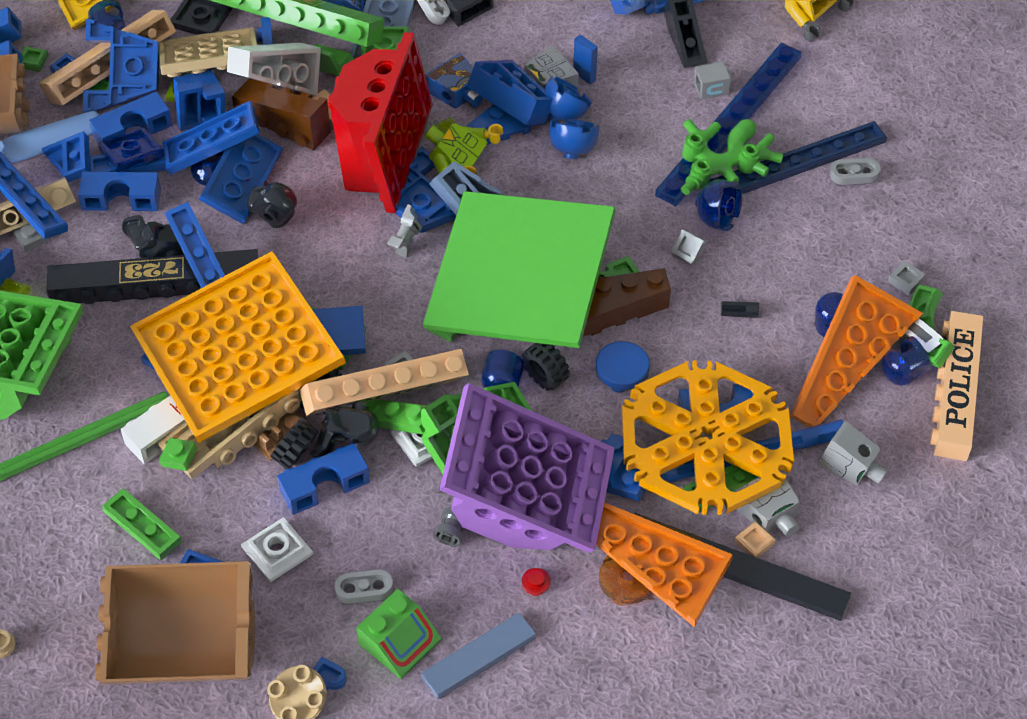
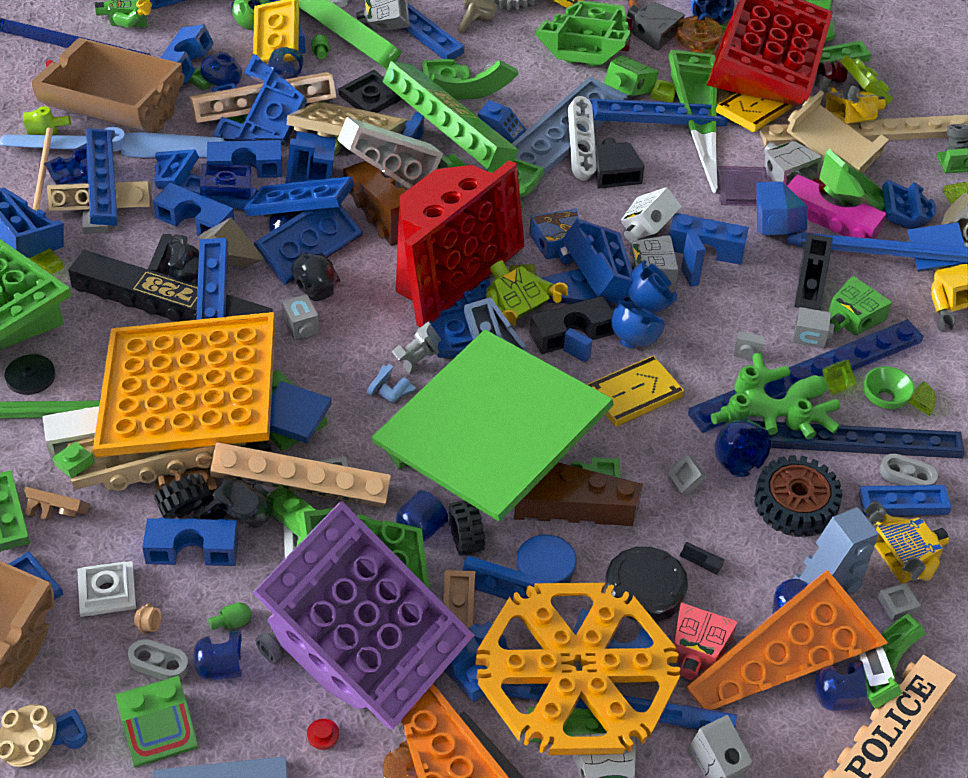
camera: 25 degrees right, 5 degrees down
(46, 45) = (221, 69): none -> clear blue piece
(71, 399) = (29, 374): none -> black piece
(120, 240) = (161, 256): none -> black tile
(172, 197) = (240, 249): none -> dark tan slope
(195, 496) = (47, 501): none -> medium nougat plate
(284, 245) = (300, 317): none -> light grey brick
(330, 557) = (148, 619): none -> light nougat plate
(398, 524) = (231, 617): none -> bright green cylinder
(409, 272) = (402, 387): none -> light blue piece
(417, 563) = (220, 660): none -> clear blue helmet
(503, 168) = (588, 316): none -> black arch
(524, 33) = (649, 214): none -> white torso
(534, 173) = (578, 345): none -> blue tile
(573, 416) = (459, 594): none -> medium nougat plate
(597, 397) = (499, 579): none -> blue plate
(599, 29) = (725, 237): none -> blue arch
(606, 185) = (638, 390): none -> yellow tile
(672, 116) = (748, 344): none -> light grey plate
(712, 340) = (651, 577): none -> black piece
(738, 47) = (858, 307): none -> bright green torso
(757, 112) = (839, 376): none -> clear neon green tile
(780, 370) = (701, 639): none -> coral torso
(783, 226) = (797, 495): none -> wheel
(803, 101) = (891, 381): none -> bright green piece
(830, 105) = (924, 398): none -> clear neon green tile
(852, 255) = (843, 550): none -> sand blue wedge
(864, 195) = (907, 499): none -> blue plate
(888, 230) = (907, 544): none -> torso

